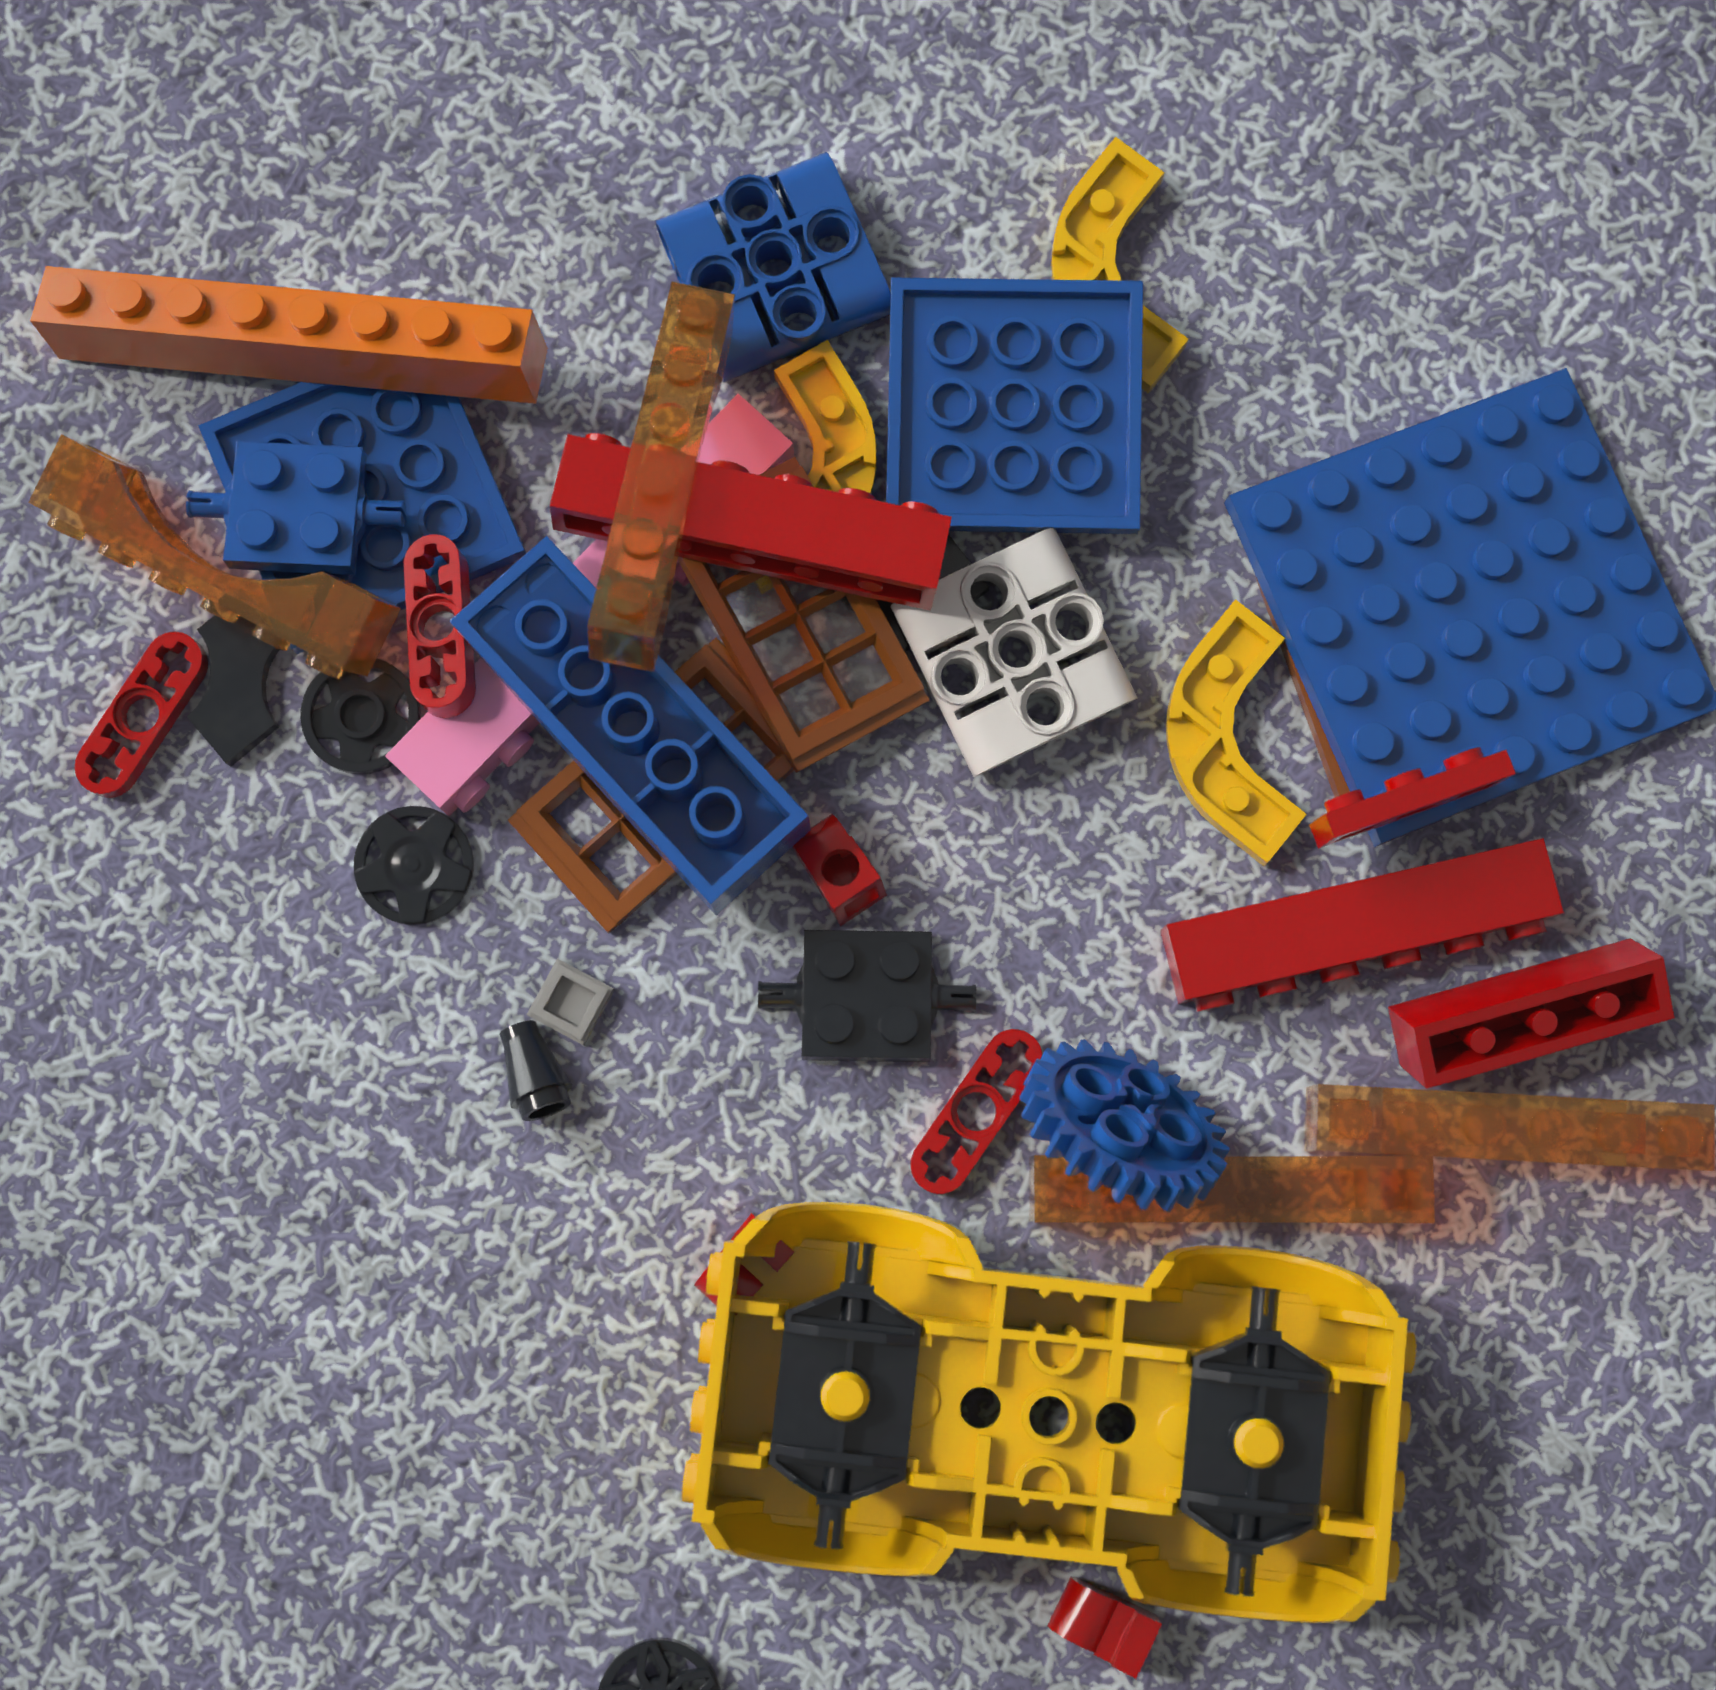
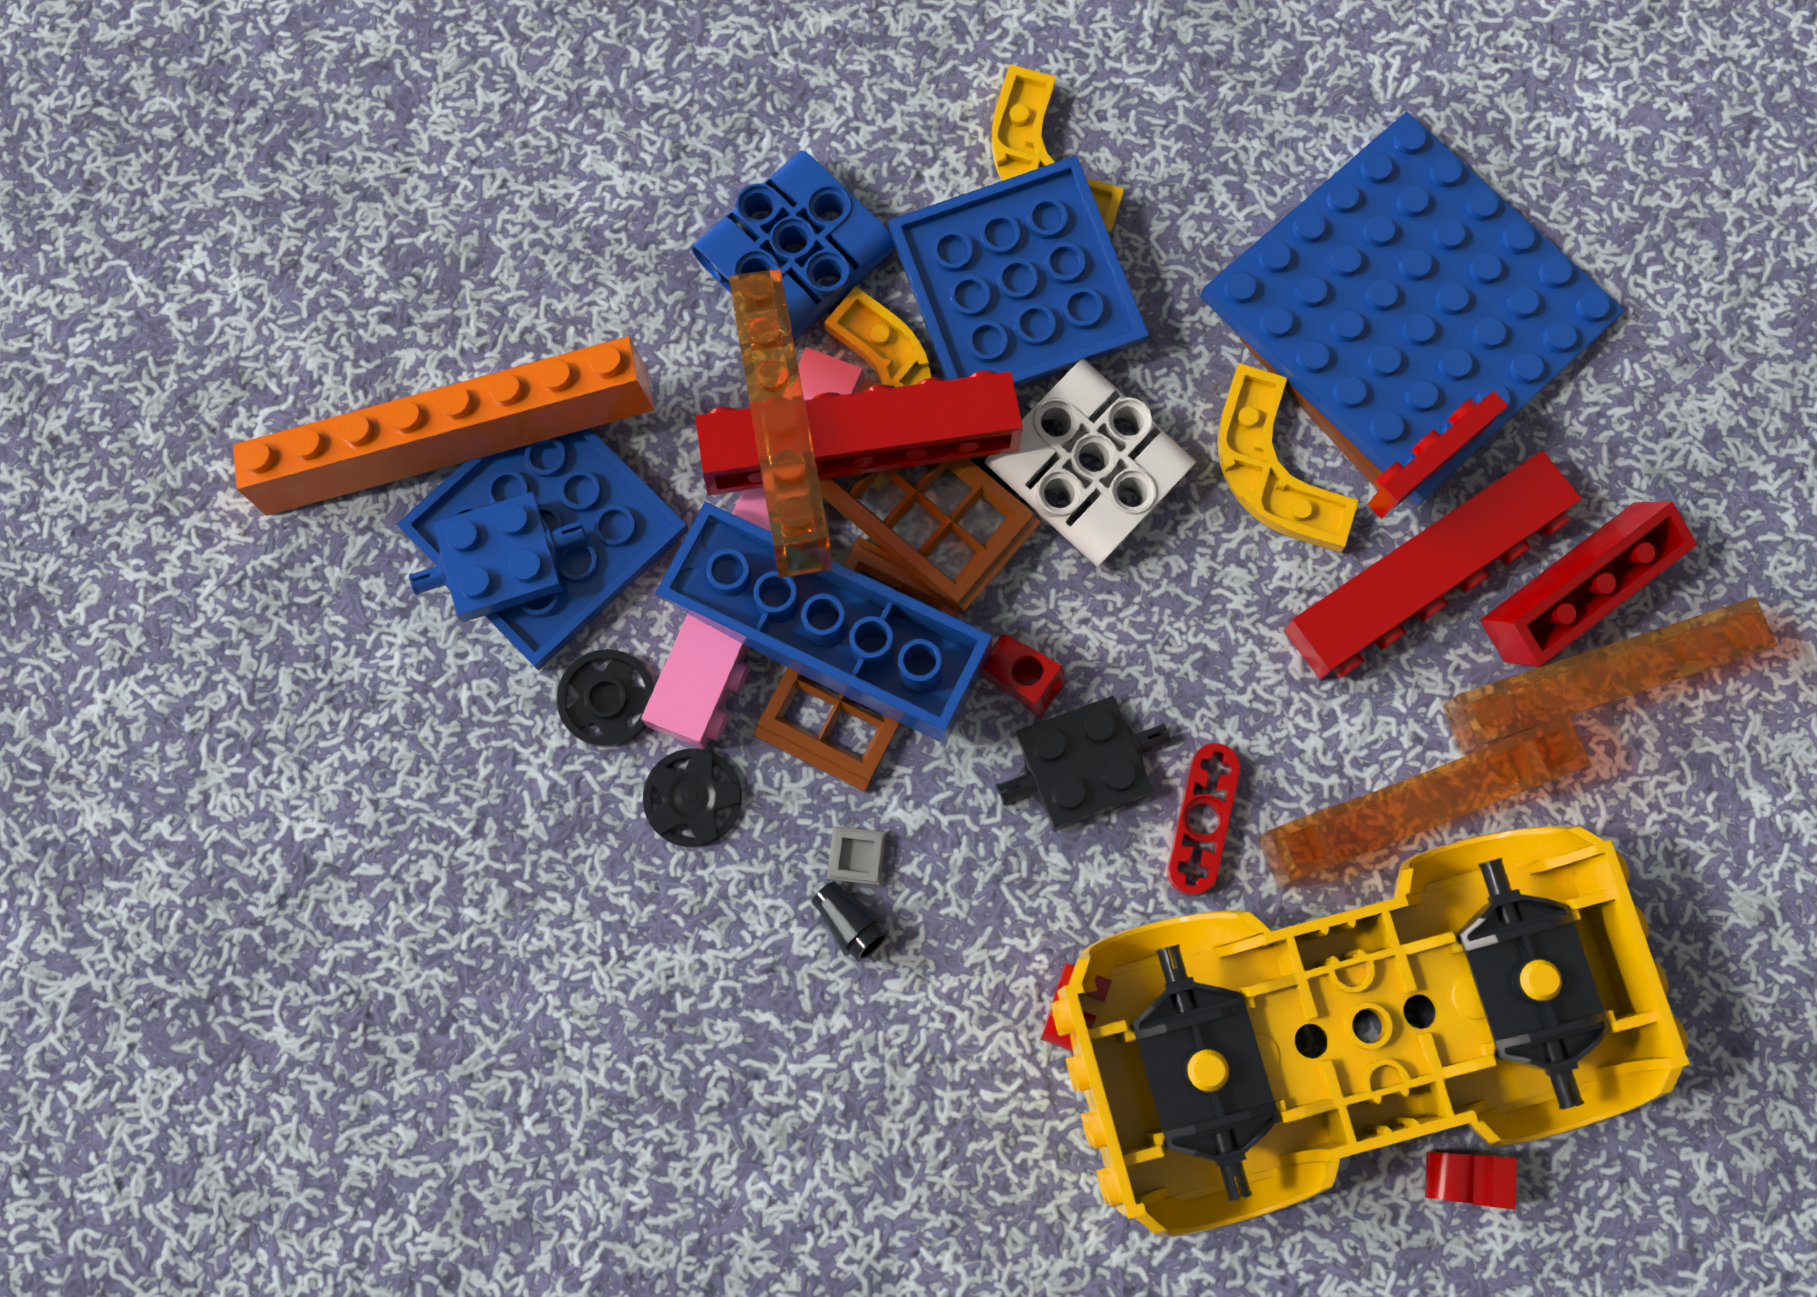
camera: 20 degrees left, 5 degrees down
(113, 503) = (546, 626): clear orange arch -> none
(116, 715) = (411, 797): red beam -> none
(235, 704) = (504, 728): black tile -> none
(423, 603) = (627, 590): red beam -> none
(1124, 1125) = (1327, 781): blue gear -> none

